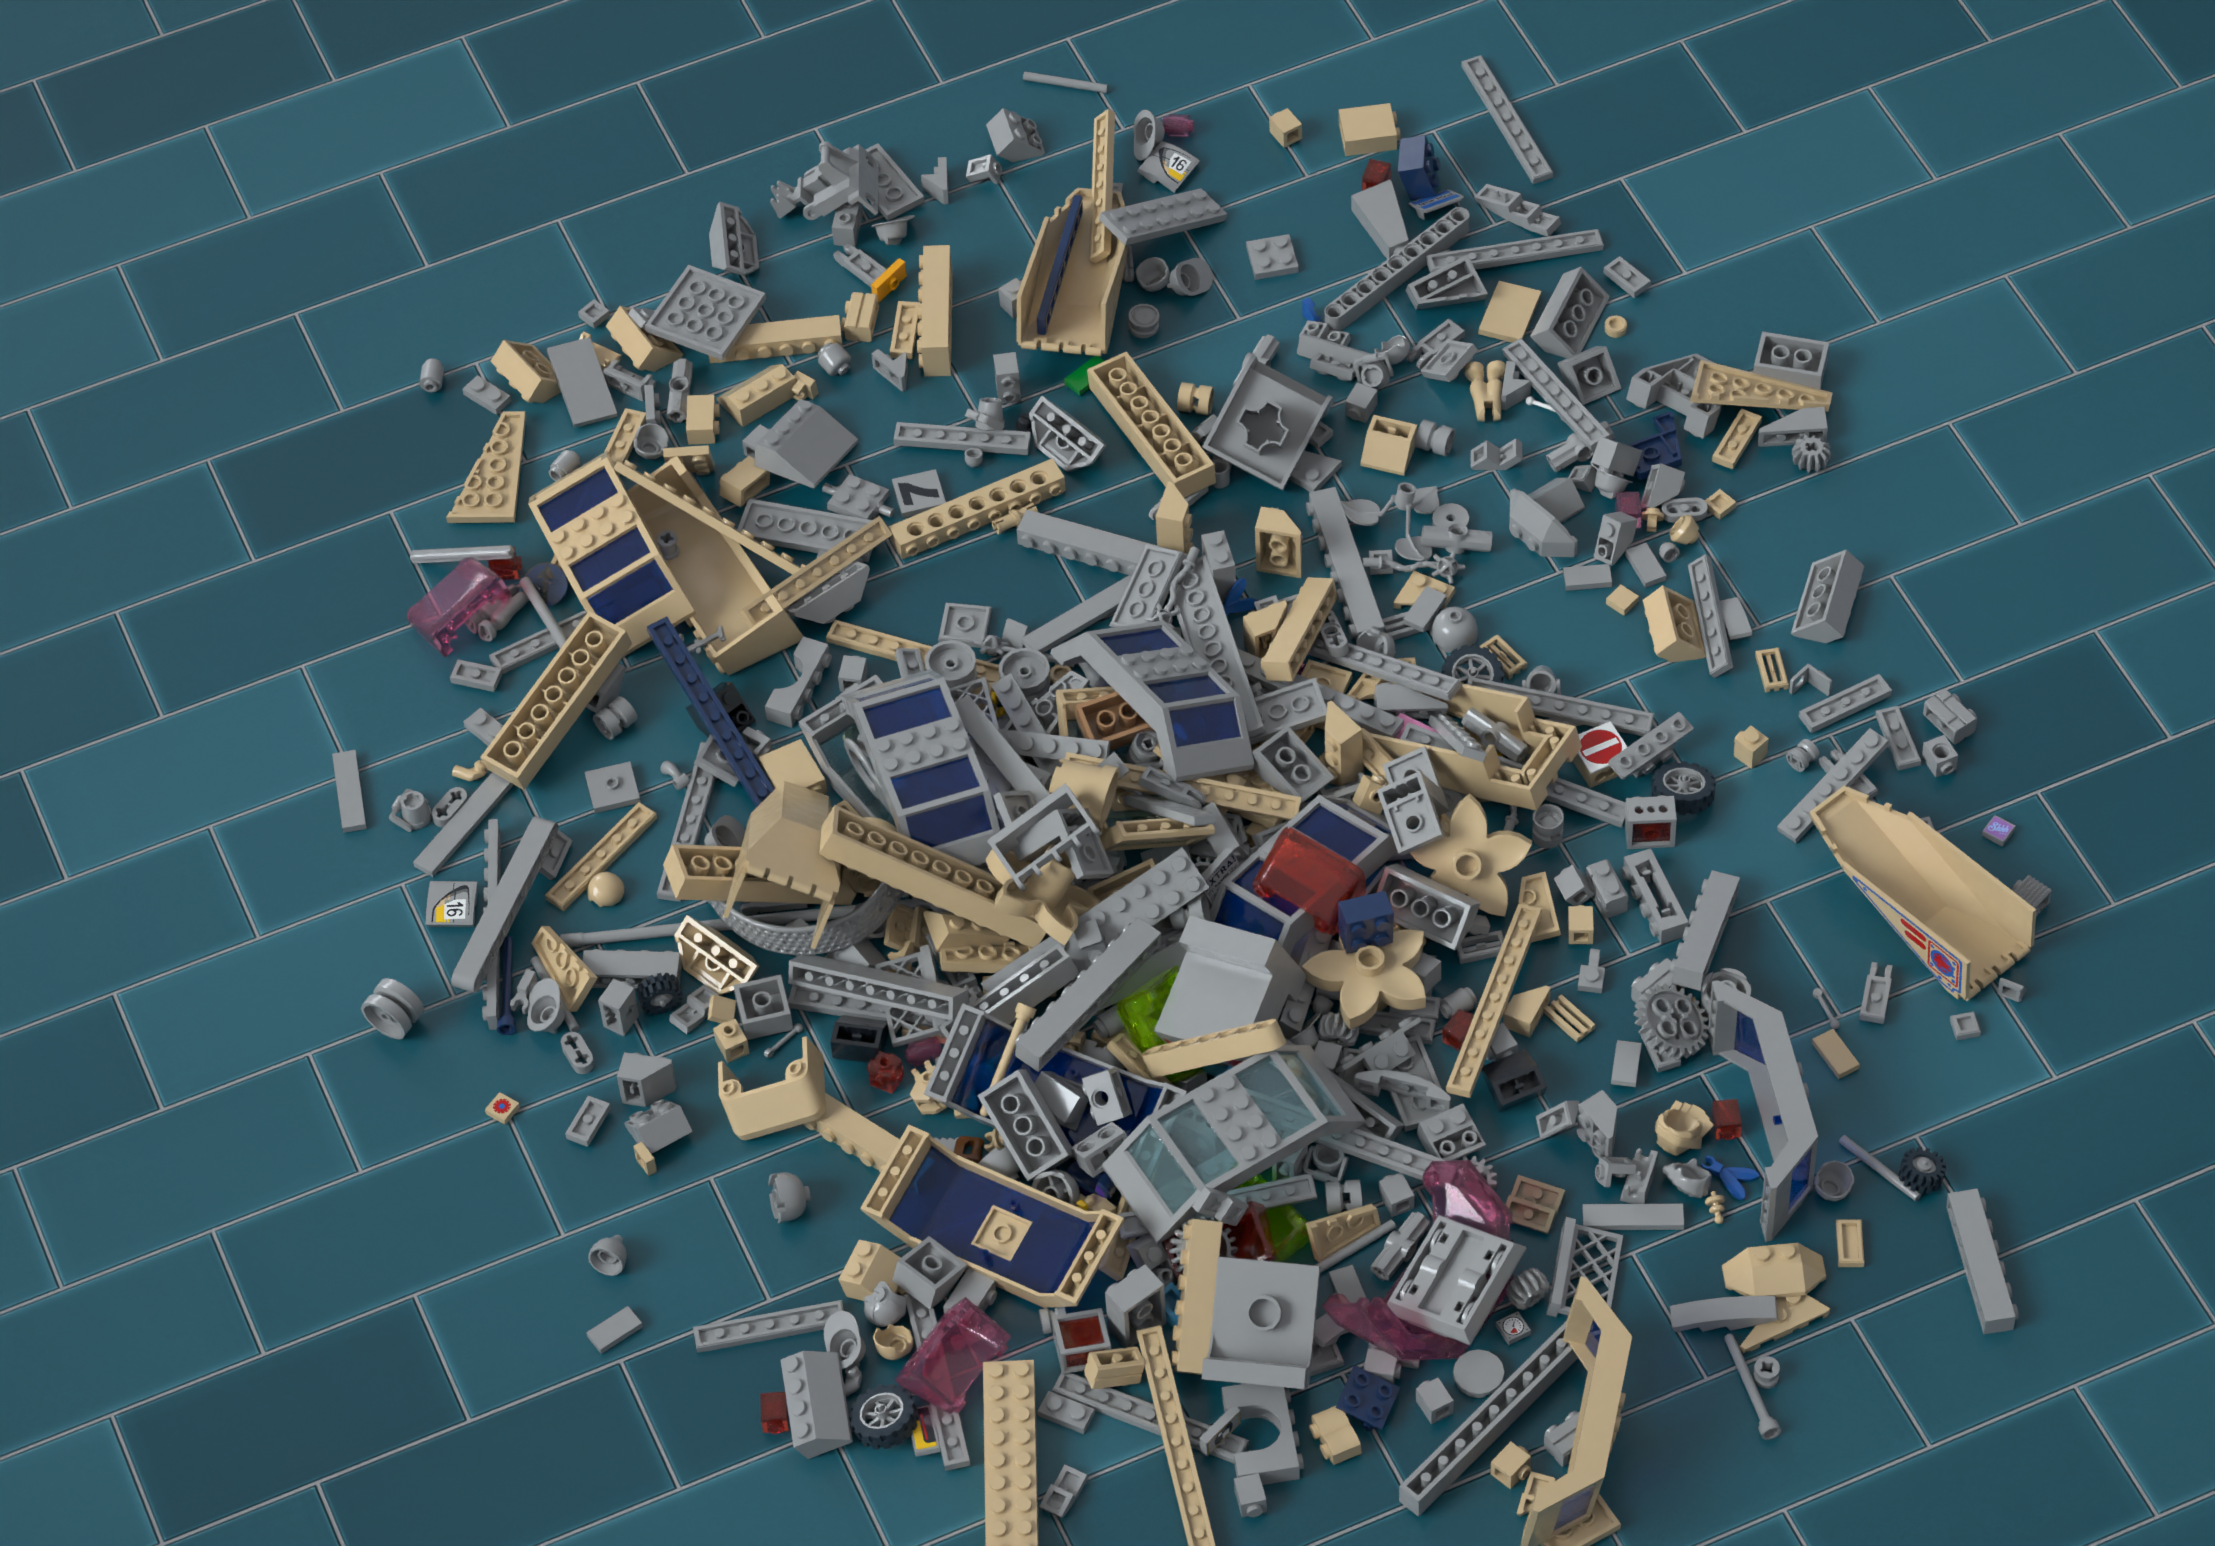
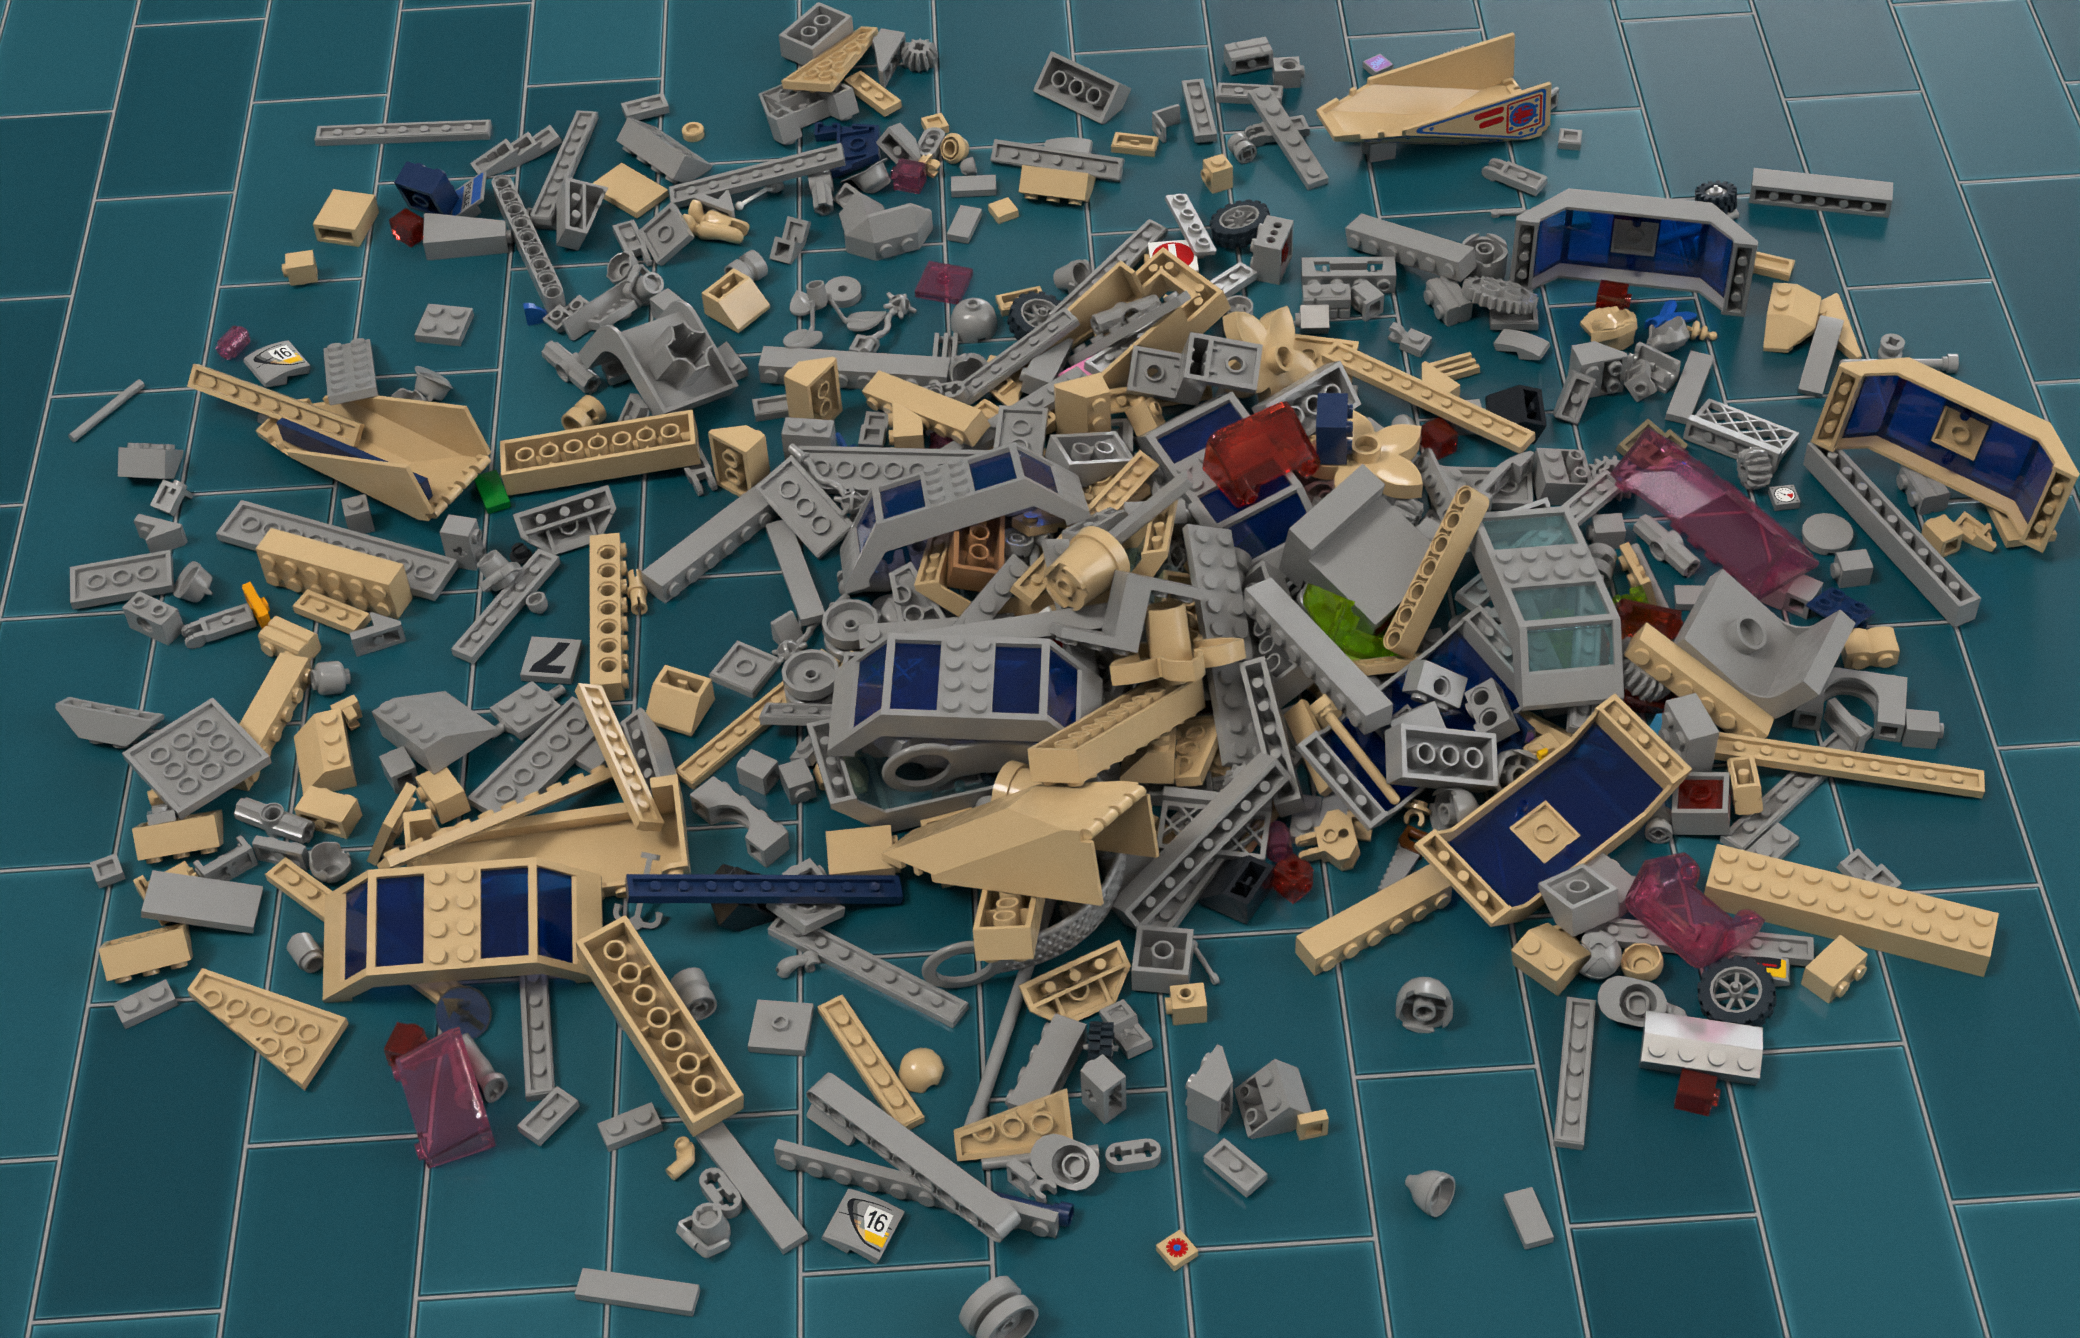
camera: 70 degrees left, 5 degrees down
(431, 375) = (81, 1047): light grey brick -> none
(459, 554) = (372, 1078): light grey axle -> none
(543, 611) = (523, 1019): light grey piece -> none
(721, 1009) = (1142, 1002): tan tile -> none
(725, 832) = (917, 941): light grey piece -> none
(779, 1104) = (1304, 1006): tan windscreen -> none
(850, 180) = (81, 619): light grey container -> none
(902, 592) = (679, 700): none -> tan slope
(942, 1484) = (1835, 969): none -> tan brick
(974, 303) = (425, 570): none -> light grey plate
(1006, 838) = (1134, 559): light grey hinge -> none
(1089, 941) = (1253, 646): light grey slope -> none
(1147, 134) = (230, 361): light grey piece -> none
(1220, 1205) = (1629, 617): light grey slope -> none
(1415, 586) = (915, 331): tan wing -> none
(1424, 609) = (942, 330): light grey tile -> none
(1450, 1275) = (1739, 498): light grey piece -> none
(1456, 538) = (872, 288): light grey piece -> none
(1499, 590) = (944, 282): none -> clear pink plate
(1580, 924) = (1359, 326): tan brick -> none
(1589, 374) = (736, 151): light grey slope -> none
(1614, 536) = (939, 188): light grey slope -> none
(1616, 457) = (860, 153): light grey brick -> none
(1626, 921) = (1367, 300): none -> light grey brick

